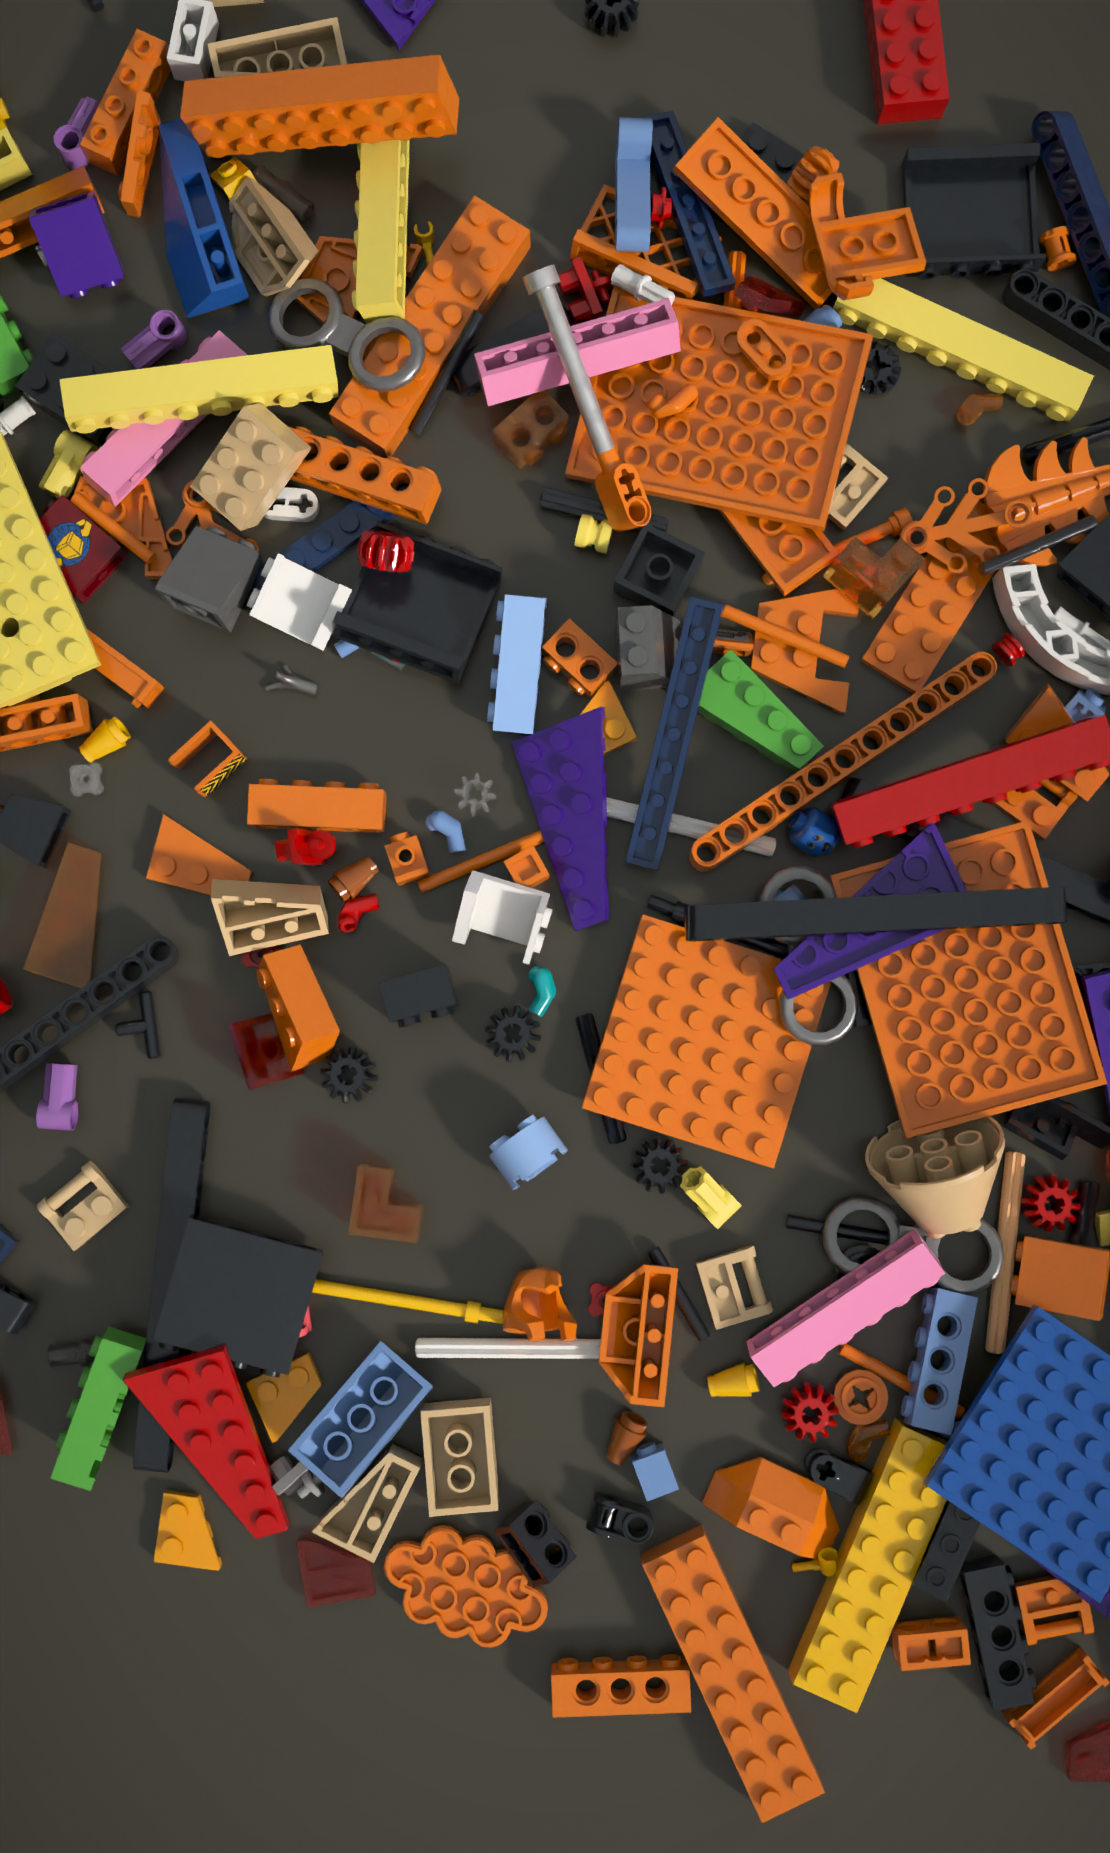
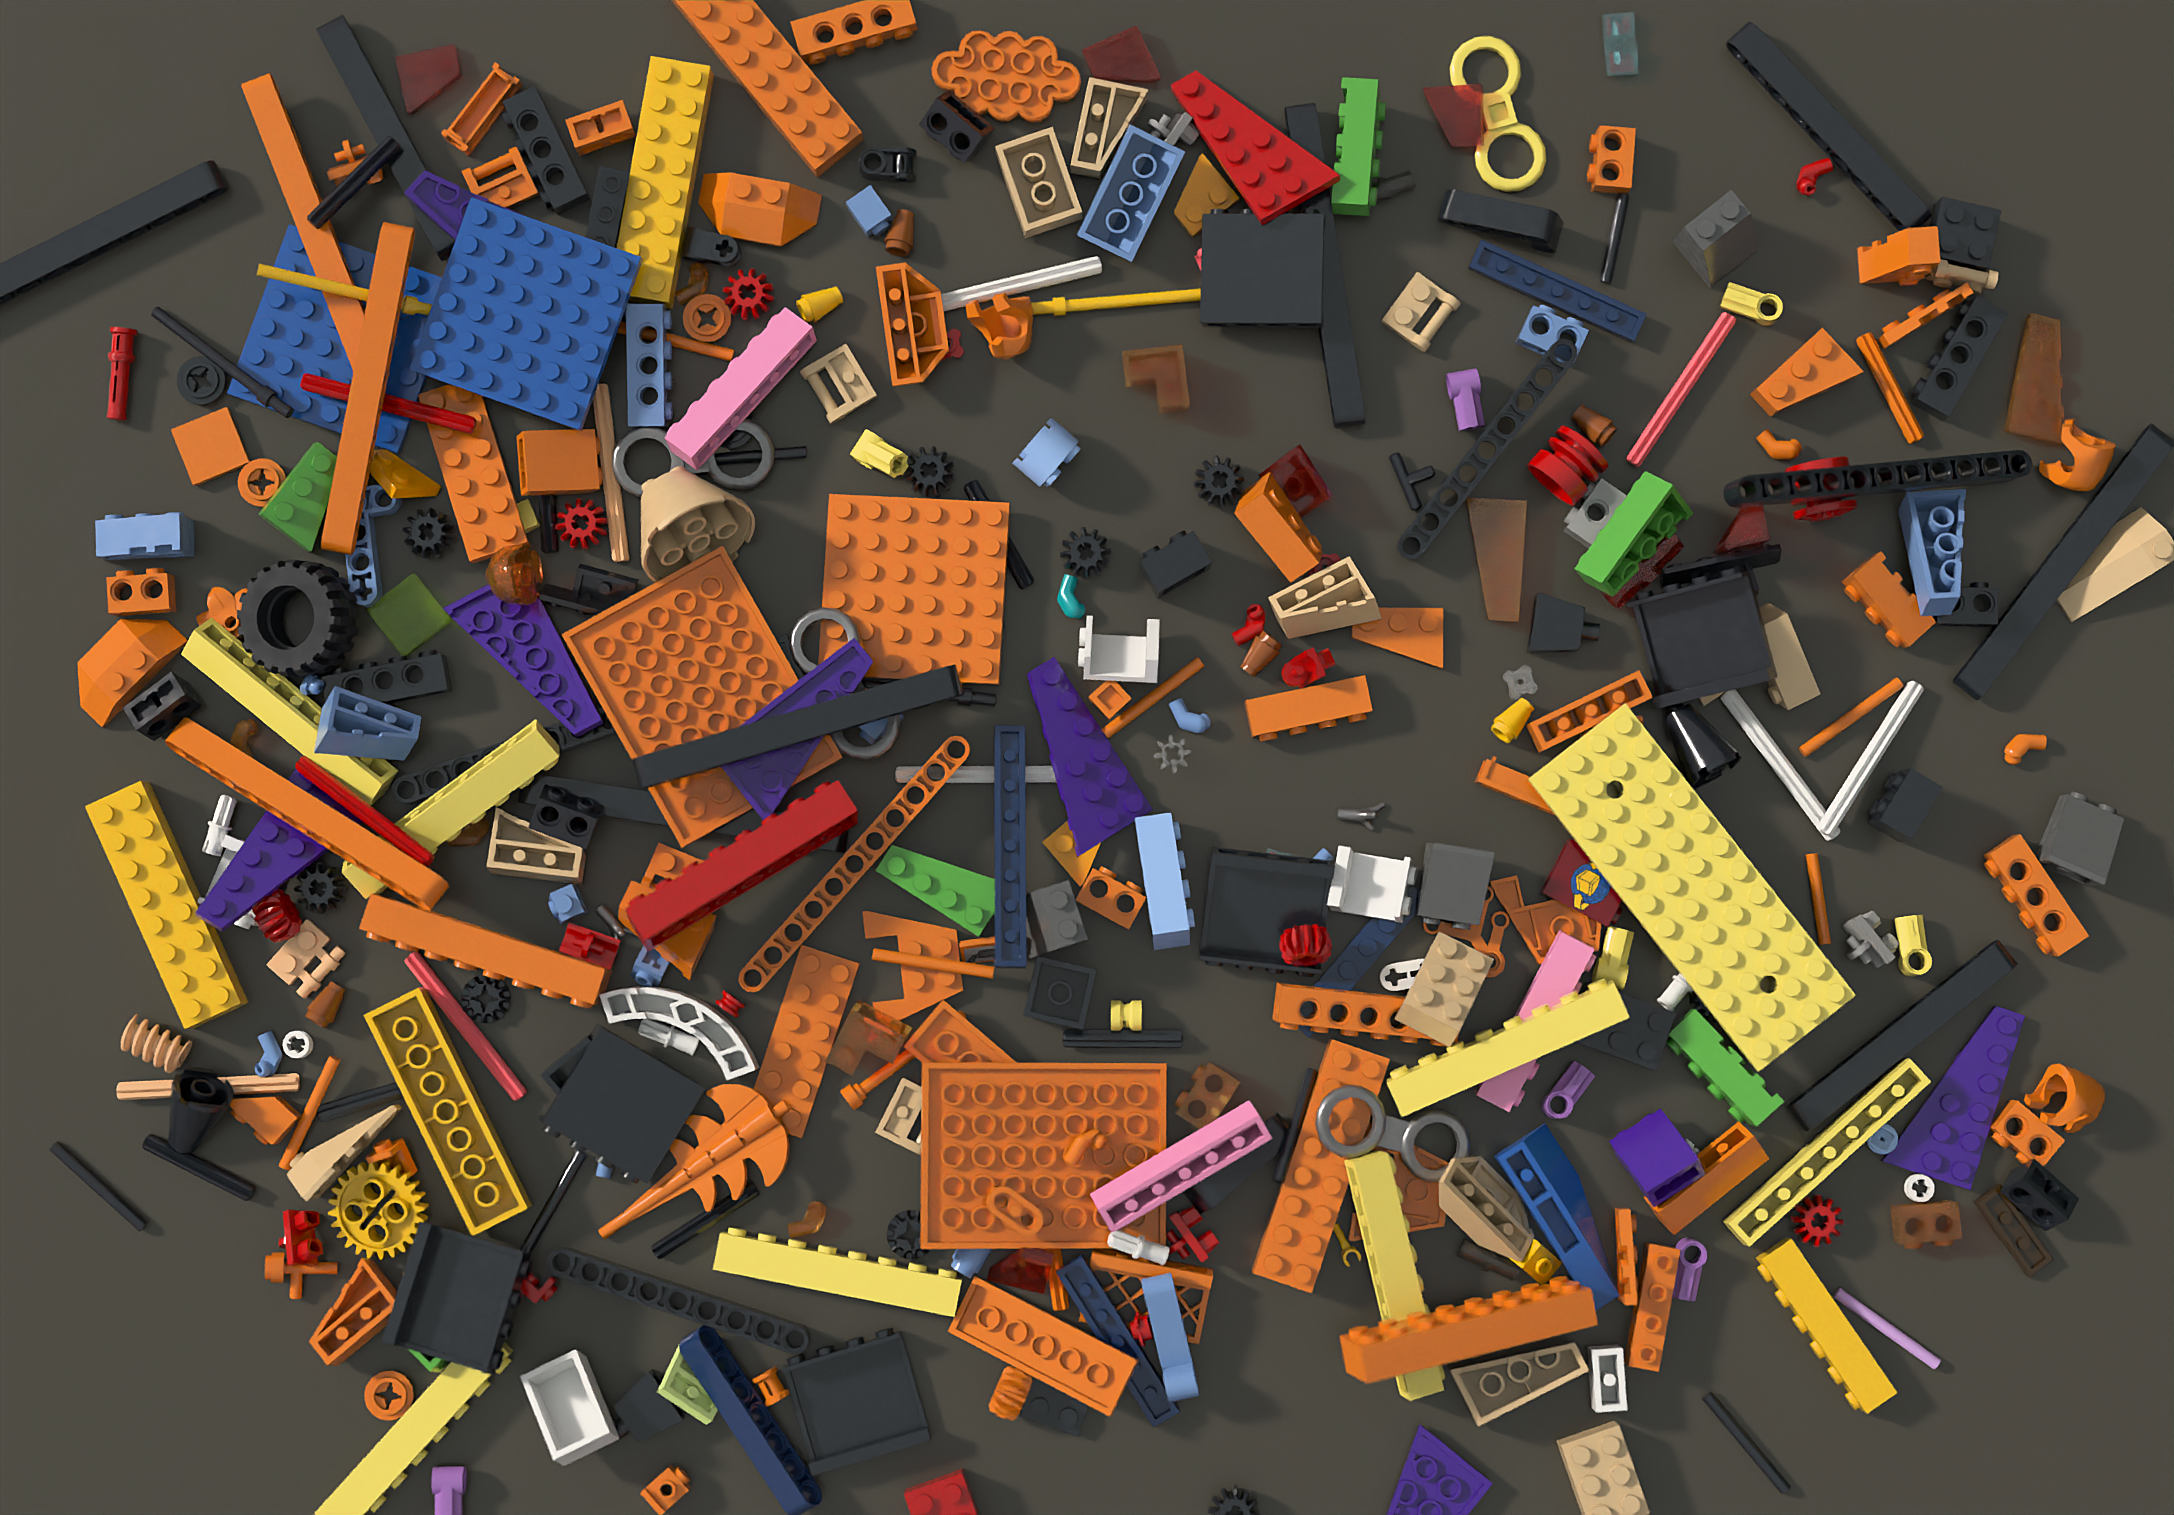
camera: 165 degrees right, 0 degrees up
(113, 528) = (1555, 909): orange bar -> none
(184, 1533) = (1257, 59): light orange wing -> none
(195, 745) = (1389, 736): orange piece -> none
(407, 871) = (1206, 677): orange brick -> none
(617, 483) = (1117, 1056): piece -> none
(682, 1299) = (882, 363): black bar -> none
(813, 832) = (867, 794): blue head -> none
(826, 1563) = (704, 172): yellow hand -> none
(861, 246) = (951, 1334): orange piece -> none
(959, 526) = (801, 1096): orange plant -> none
(1037, 545) = (728, 1098): black bar -> none

